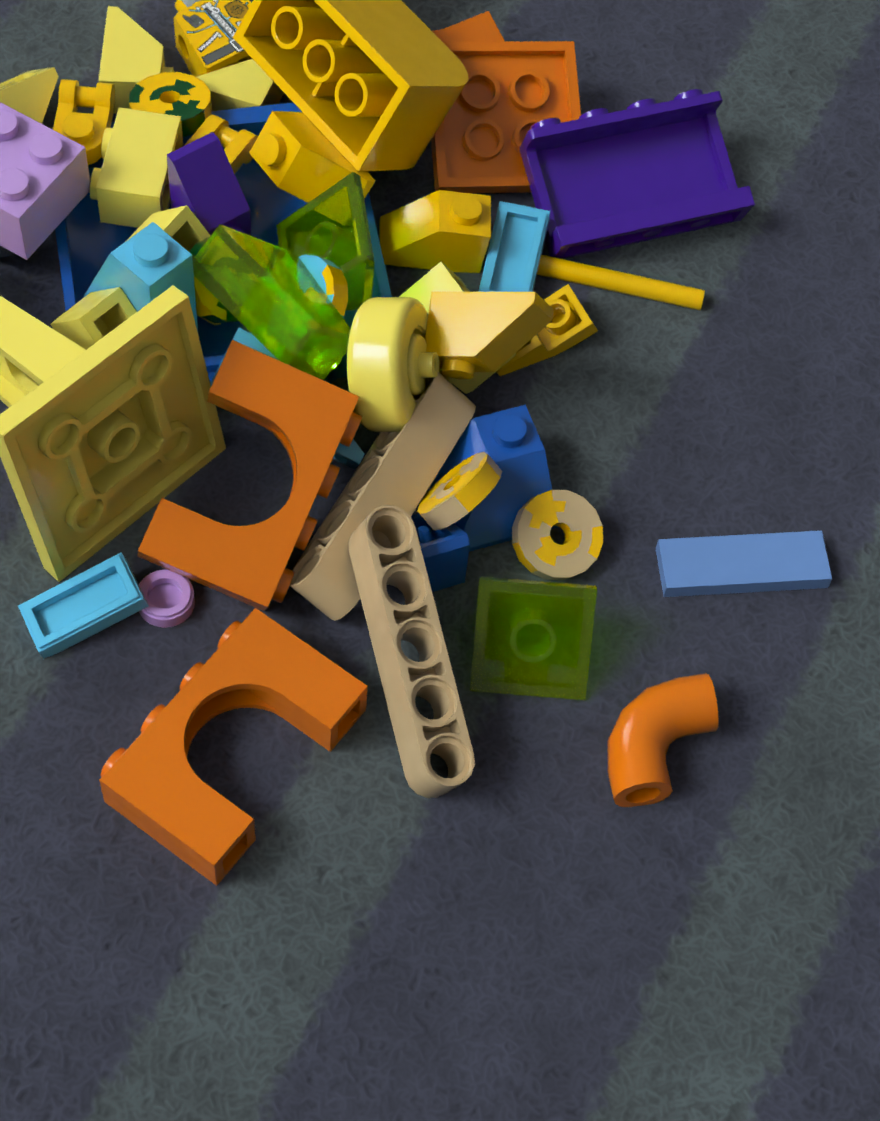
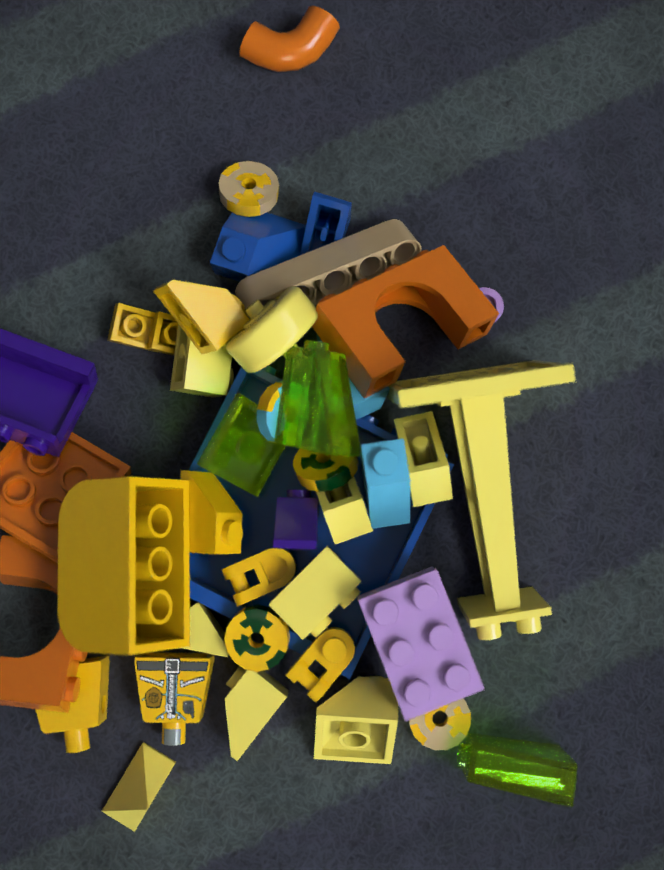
camera: 135 degrees left, 25 degrees up
(83, 606) = (533, 328): medium azure tile -> none
(253, 668) = (470, 223): orange arch -> none
(401, 677) = (389, 162): tan beam -> none
(438, 229) = (157, 434): yellow slope -> none
(459, 491) = (289, 215): piece -> none
(515, 249) = (124, 386): medium azure tile -> none
(532, 638) = (311, 138): clear neon green slope -> none
(621, 282) = (79, 342): yellow bar -> none
(743, 563) = (158, 108): medium blue tile -> none

